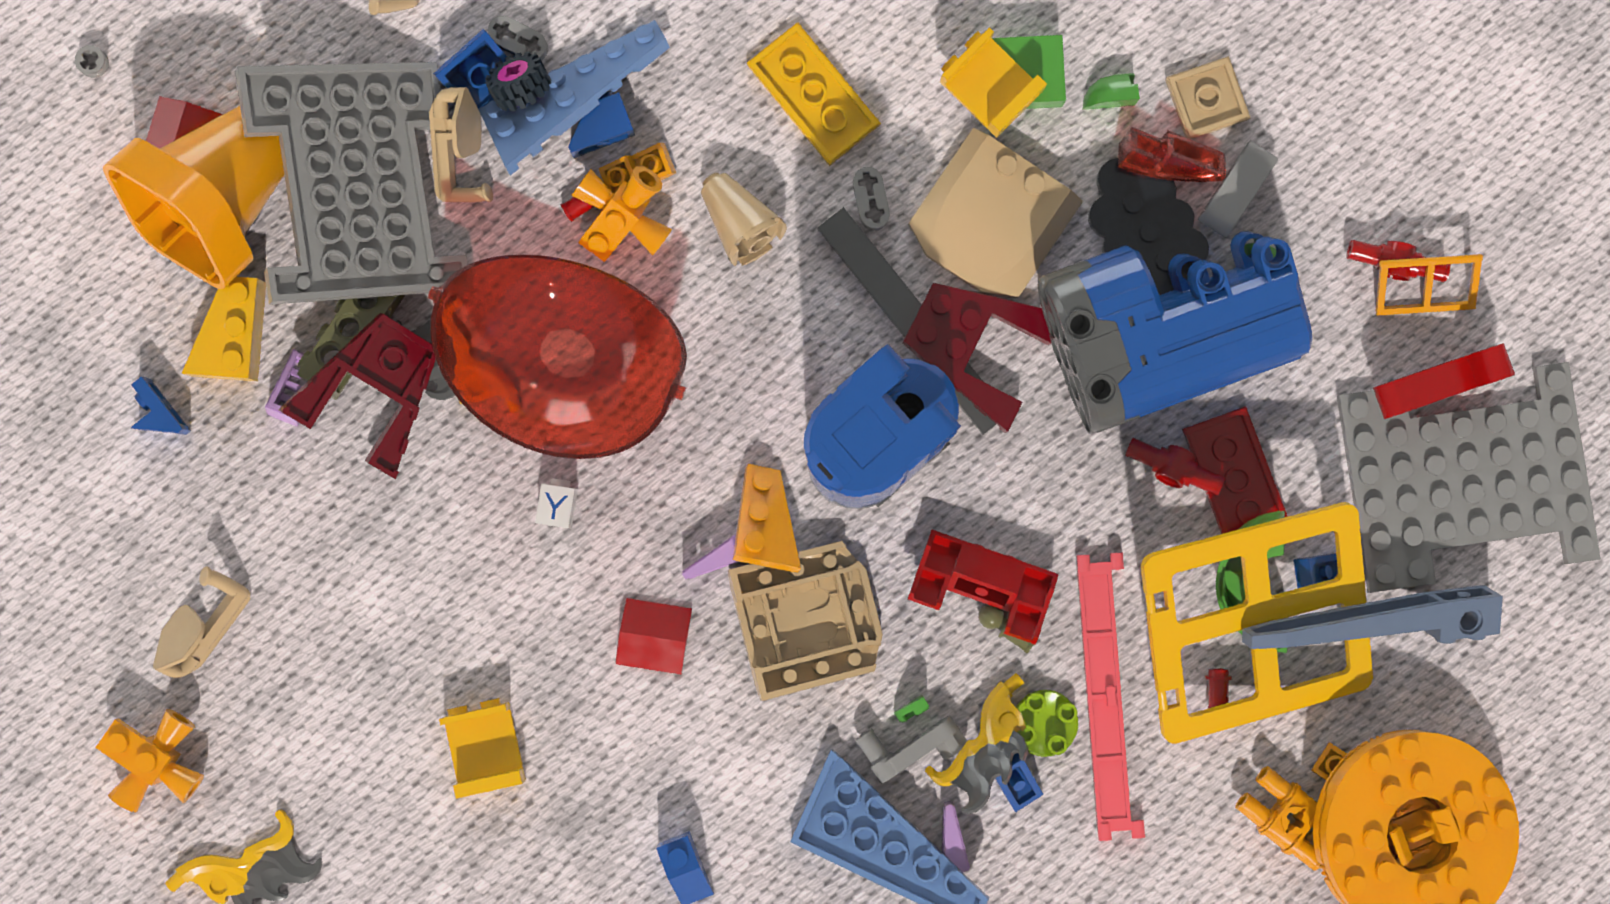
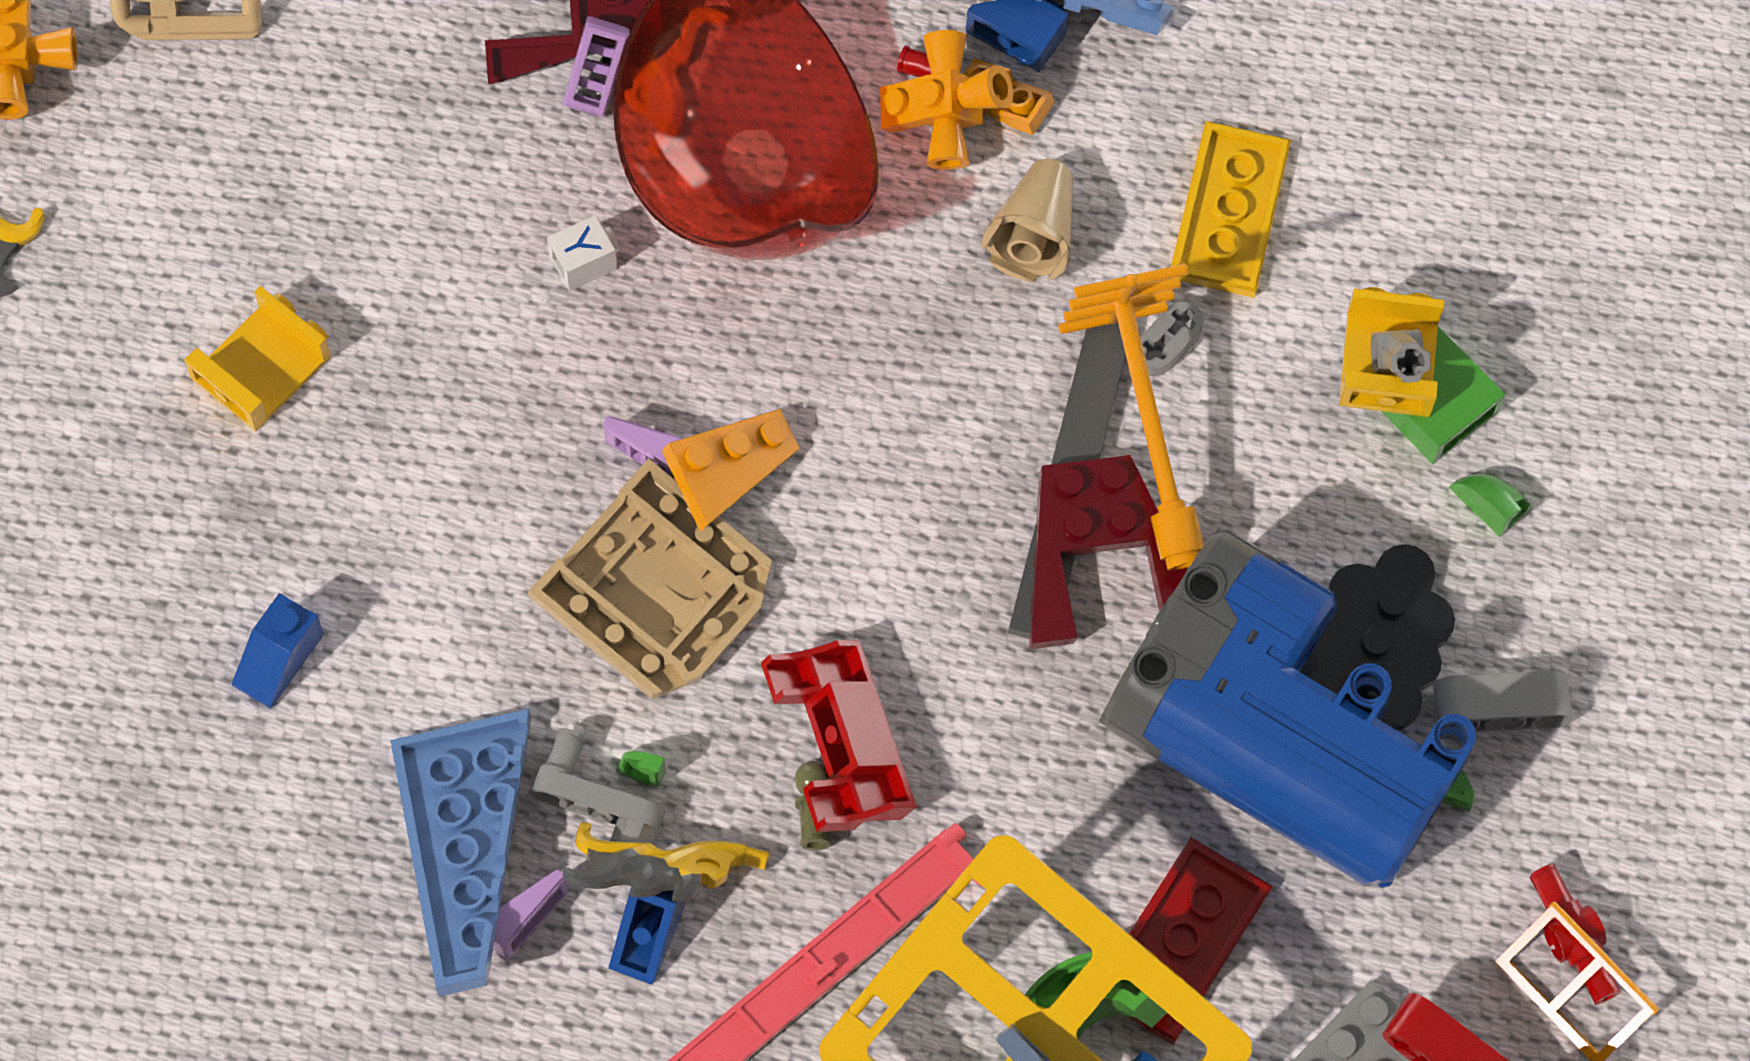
camera: 55 degrees right, 20 degrees down
(420, 390) = (607, 30): none -> lavender slope
(653, 636) = (514, 448): red slope -> none
(864, 444) = (911, 461): blue piece -> none
(992, 217) = (1263, 467): tan wedge -> none
(1000, 292) = (1122, 302): none -> light orange piece
(1004, 81) = (1400, 353): none -> light grey piece
(1049, 722) = (736, 924): lime dish -> none
(1170, 157) = (1474, 604): clear red slope -> none
(1175, 466) = (1140, 854): red pin -> none
(1207, 98) = (1573, 604): tan tile -> none

